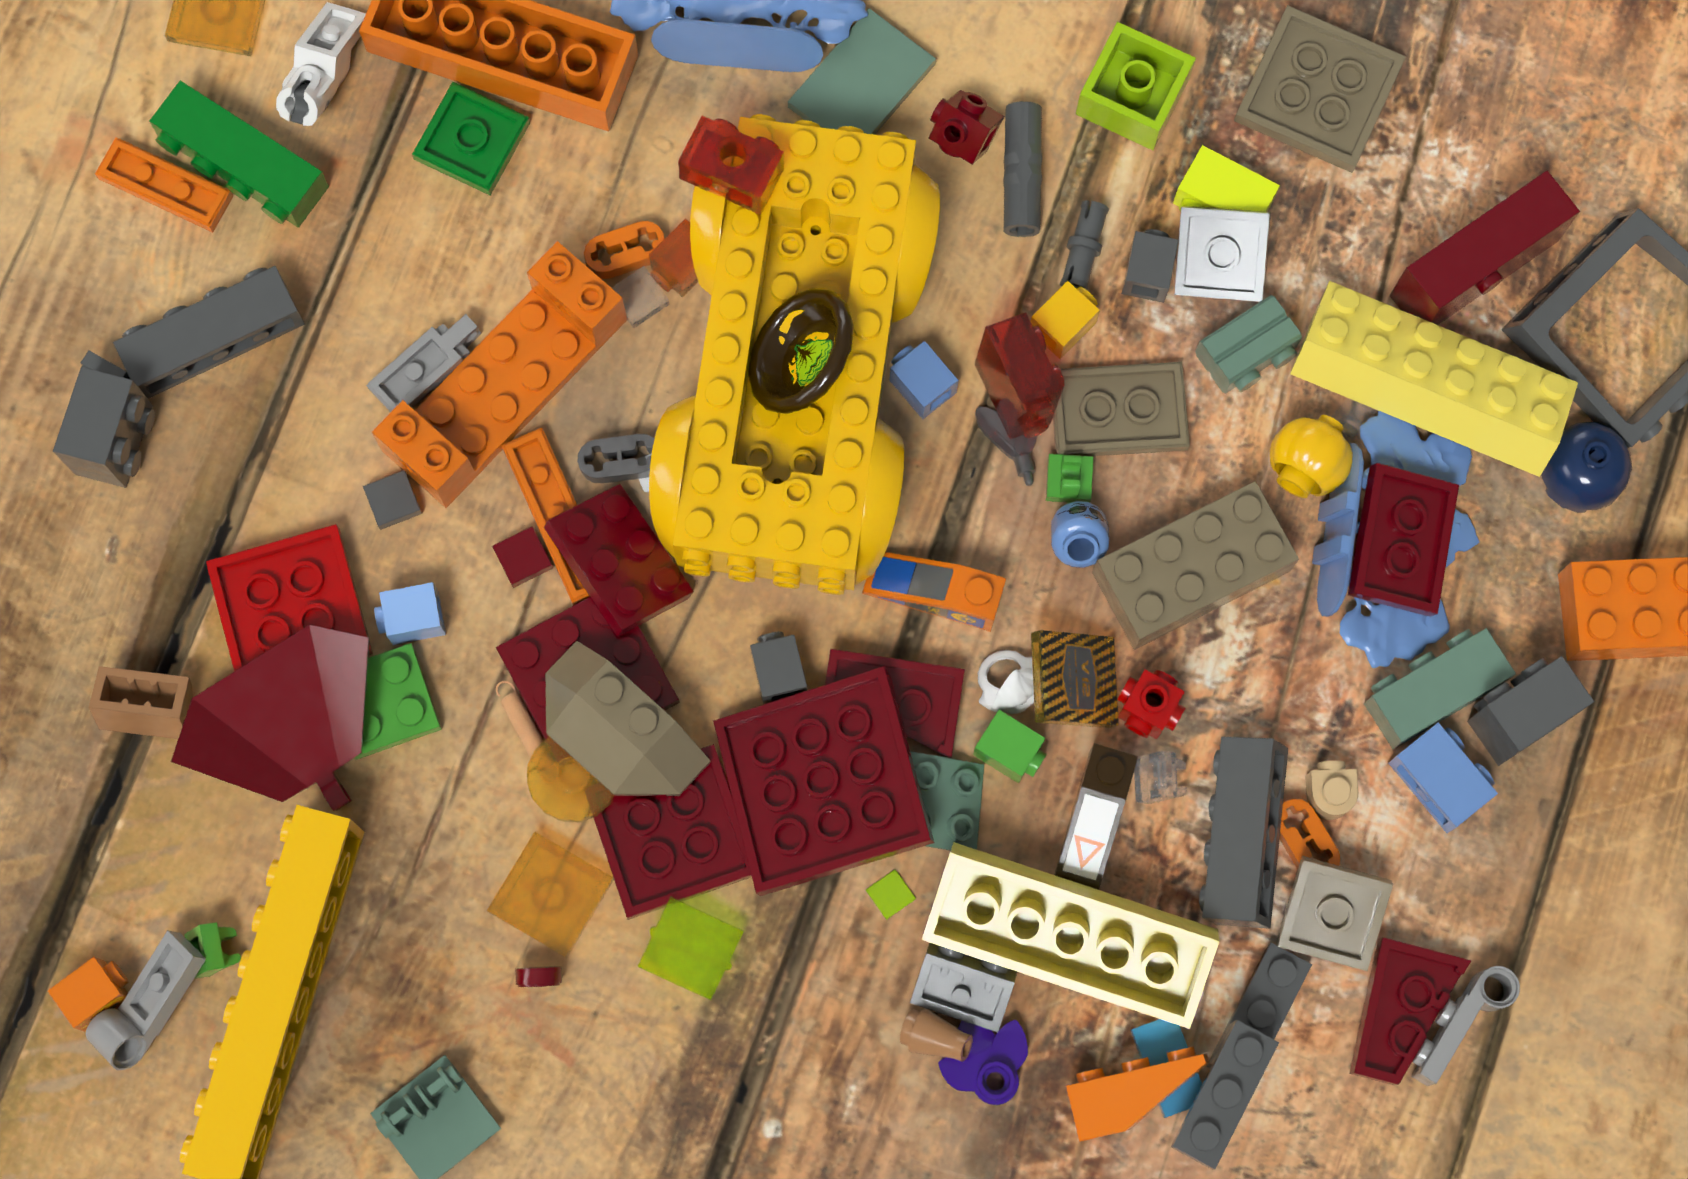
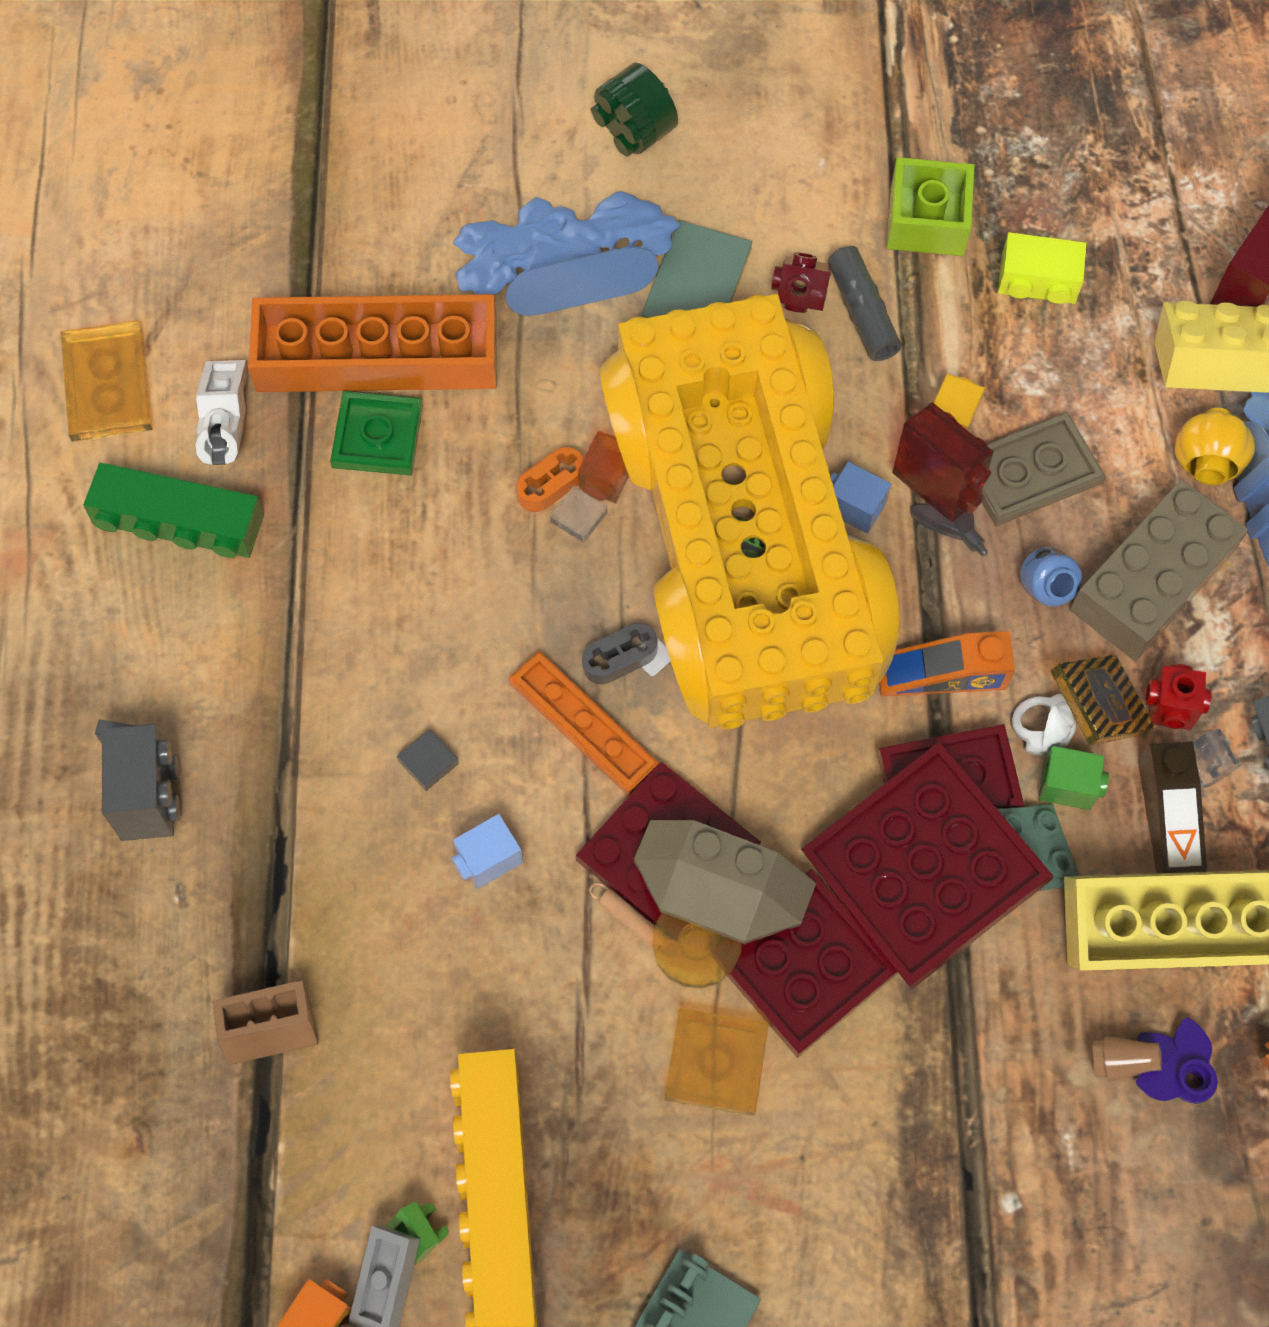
camera: 20 degrees left, 10 degrees down
(164, 184) = (113, 560): orange tile -> none
(208, 332) = (205, 667): dark grey brick -> none
(282, 589) = (370, 887): red plate -> none
(283, 718) = (408, 983): dark red panel -> none
(396, 701) = (490, 941): bright green plate -> none
(424, 364) = (411, 634): light grey hinge -> none
(504, 377) = (489, 618): orange plate -> none
(522, 557) = (566, 768): dark red tile -> none
(538, 976) = (739, 1140): dark red tile -> none
(618, 559) = (656, 738): dark red plate -> none
(690, 948) = (867, 1061): clear neon green piece -> none
(744, 185) = (616, 369): clear red brick -> none
(777, 666) = (838, 781): dark grey brick -> none
(801, 351) = (756, 493): dark brown piece -> none
(890, 894) = (1022, 948): lime sticker -> none
(963, 987) = (1128, 1002): bracket -> none
(1069, 478) = (1015, 537): bright green tile -> none
(1085, 244) = (942, 343): dark grey pin -> none
(1150, 265) = (1006, 344): dark grey brick -> none
(1222, 253) = (1063, 311): tile -> none
(1249, 345) = (1117, 378): sand green brick -> none
(1319, 89) = (1078, 165): dark tan plate -> none

